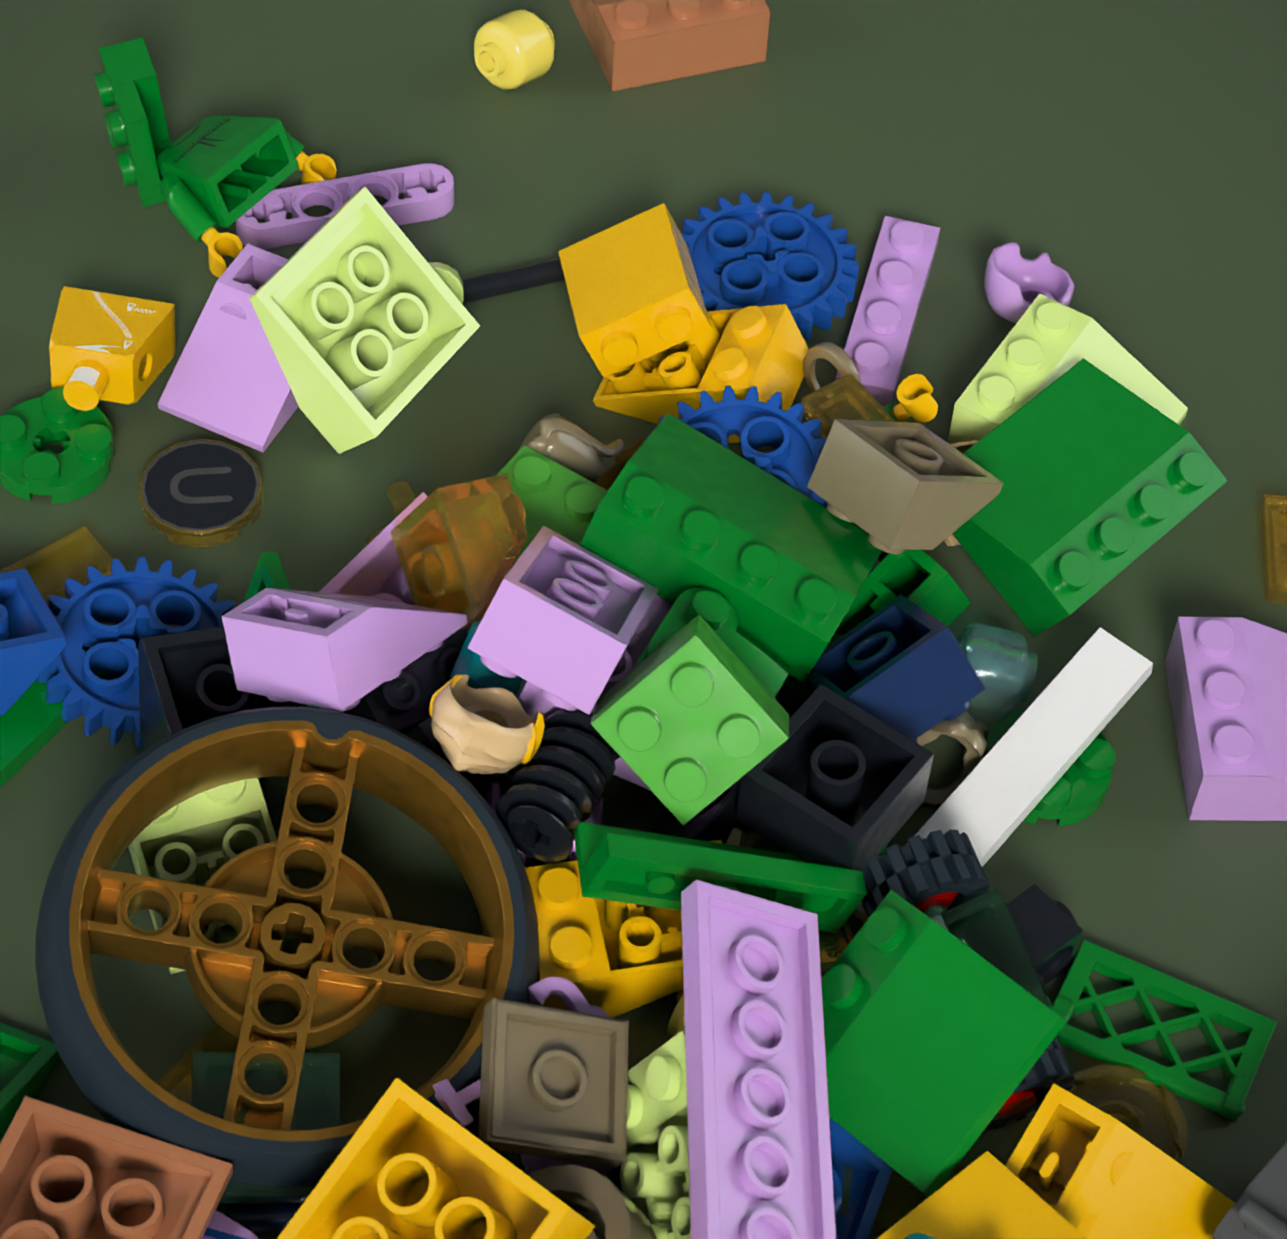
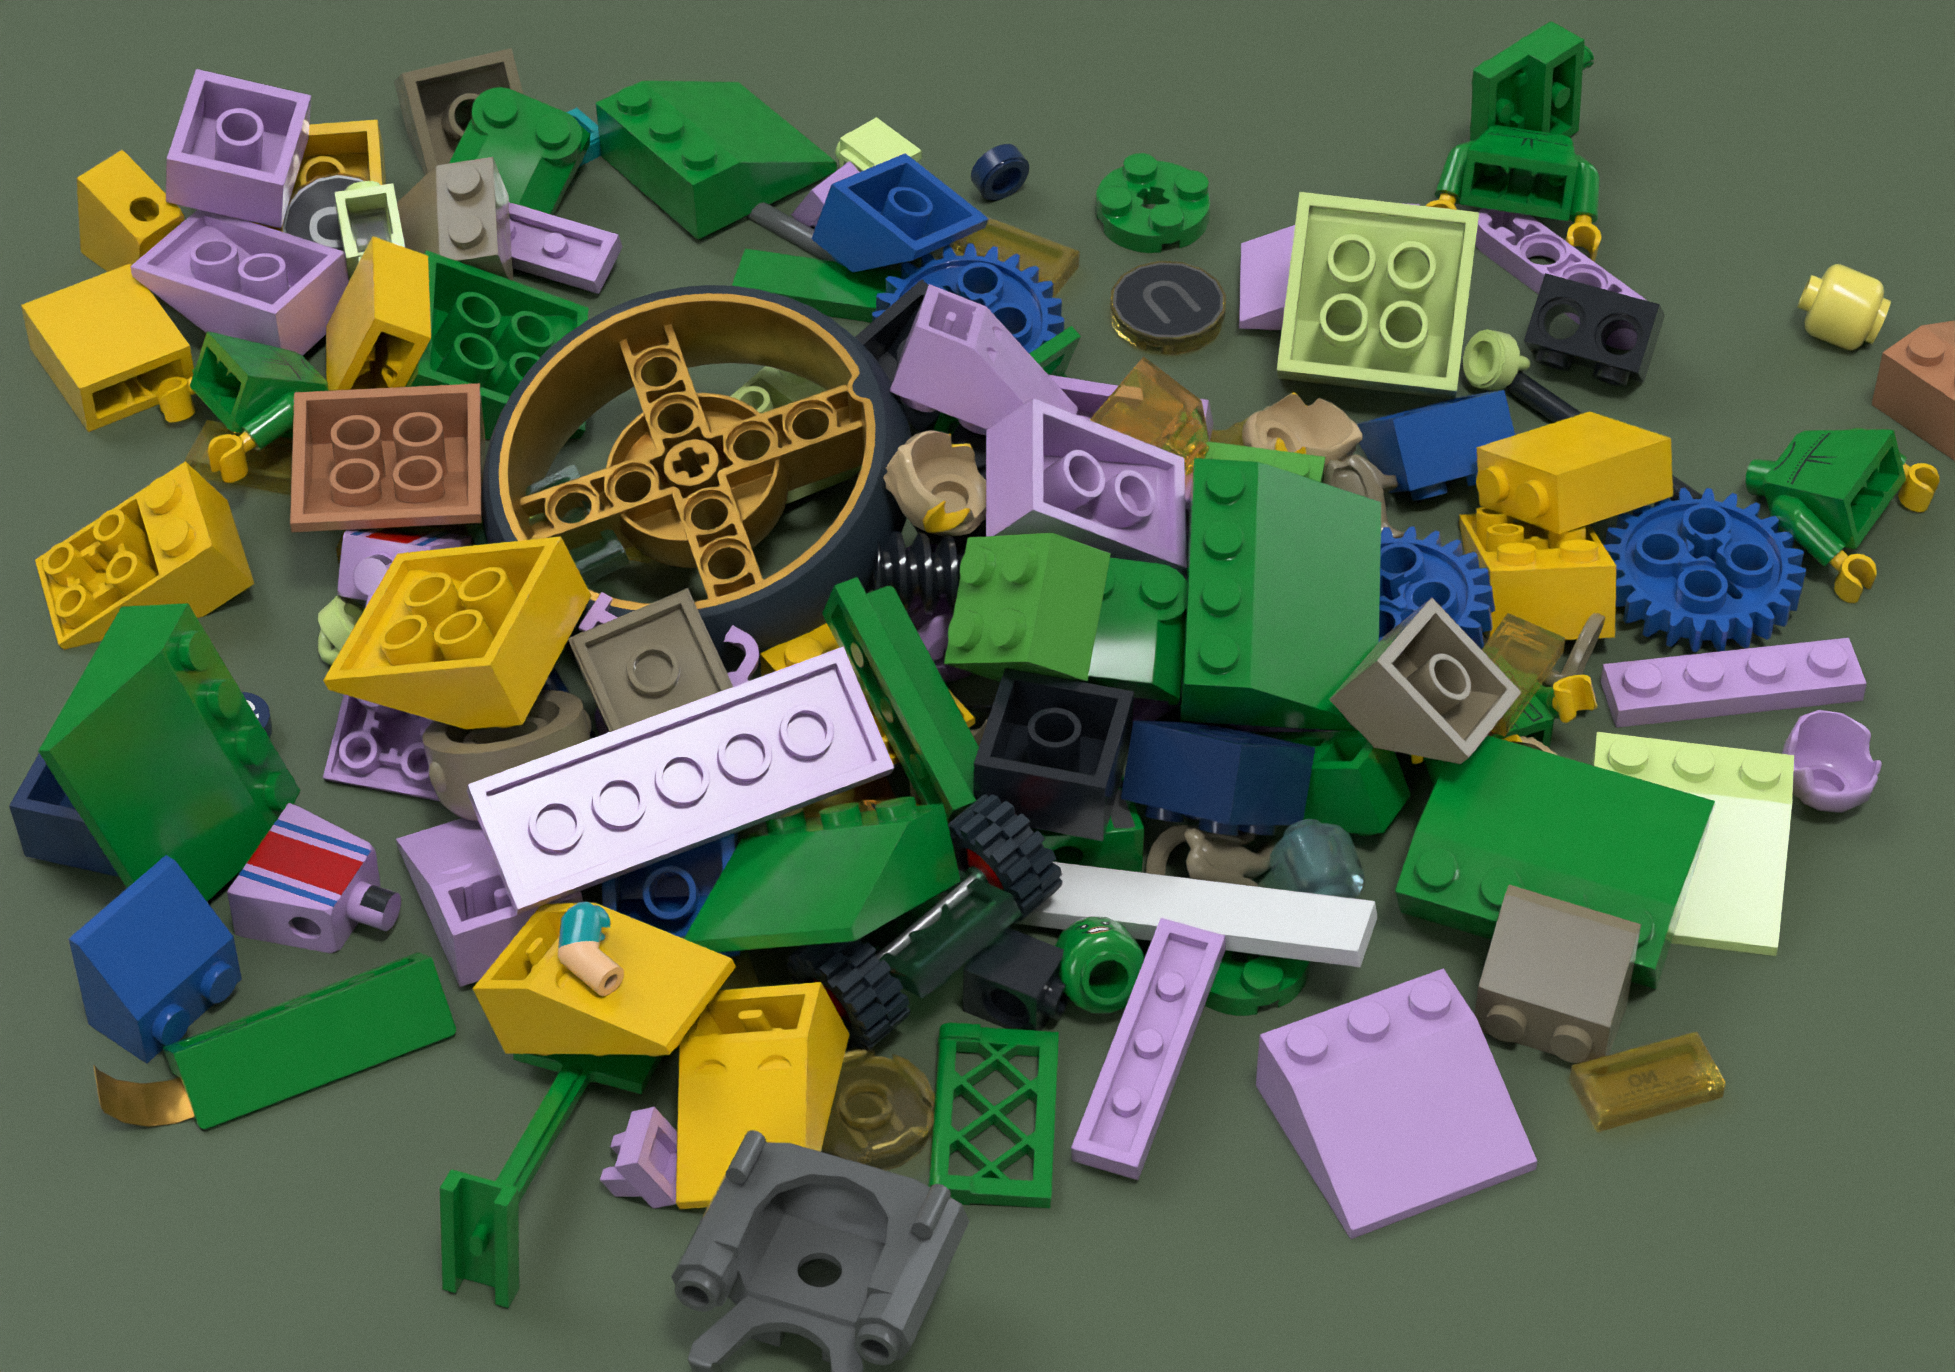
camera: 70 degrees right, 5 degrees down
(109, 346) = (1259, 179): yellow torso -> none
(449, 204) = (1600, 315): none -> black brick
(461, 450) = (1303, 429): none -> tan hair
(512, 369) = (1436, 441): none -> blue slope
(734, 149) = (1834, 489): none -> green torso
(1043, 859) = (1099, 964): none -> green head
(1157, 871) = (1148, 1049): none -> lavender plate
(1203, 550) = (1556, 976): none -> dark tan slope

